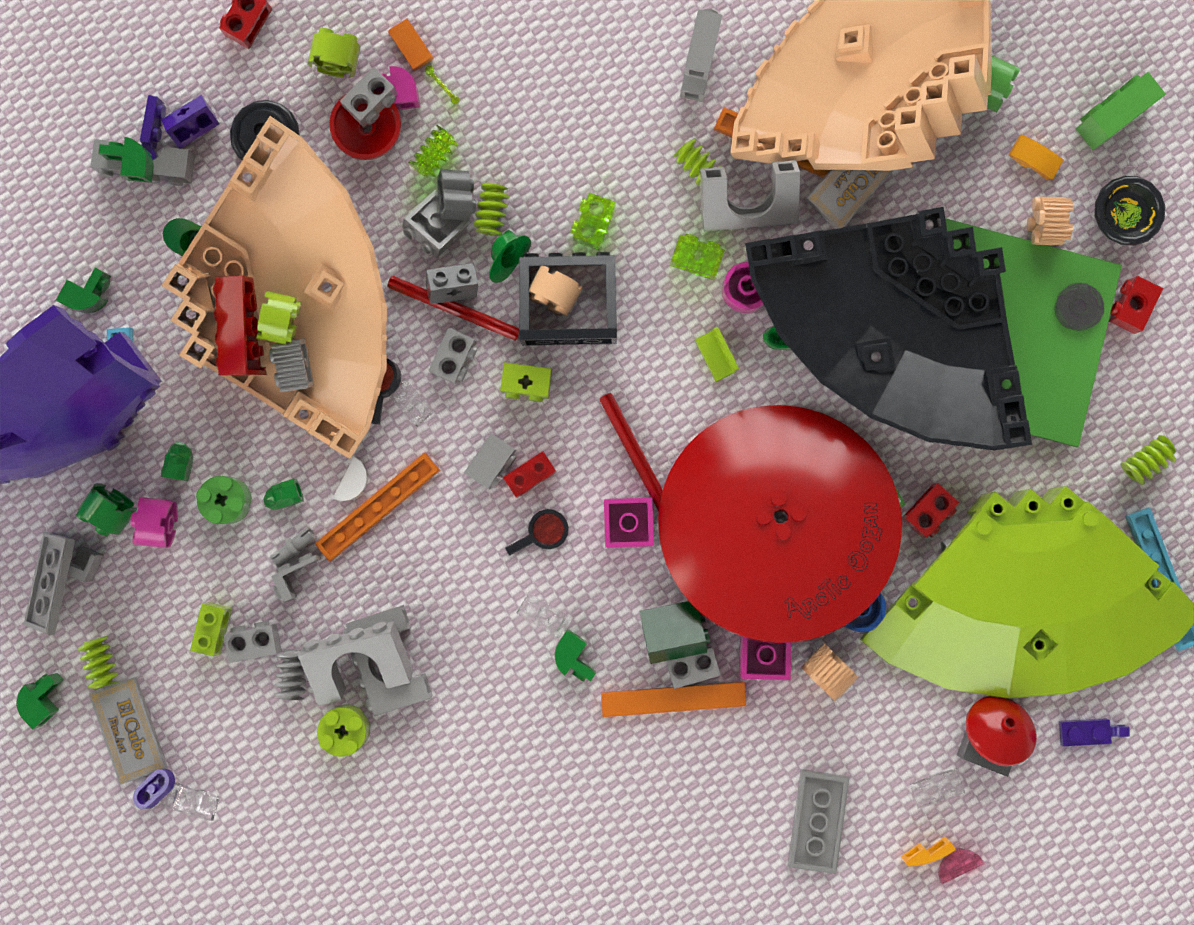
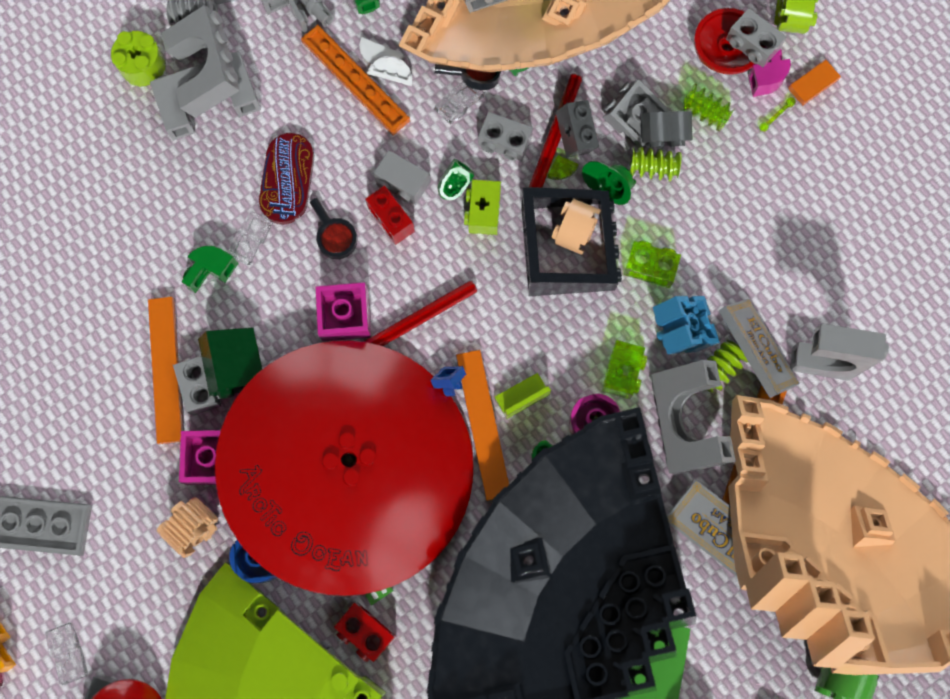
camera: 85 degrees right, 10 degrees down
(371, 468) = (391, 69): none -> white tile
(481, 578) = (286, 178): none -> dark red tile
(487, 302) = (562, 168): none -> clear neon green tile
(496, 408) = (454, 180): none -> green rock
(660, 194) = (685, 324): none -> dark azure brick
(683, 127) = (759, 347): none -> light grey tile
(698, 423) = (449, 379): none -> blue tile
(742, 393) = (483, 424): none -> orange tile

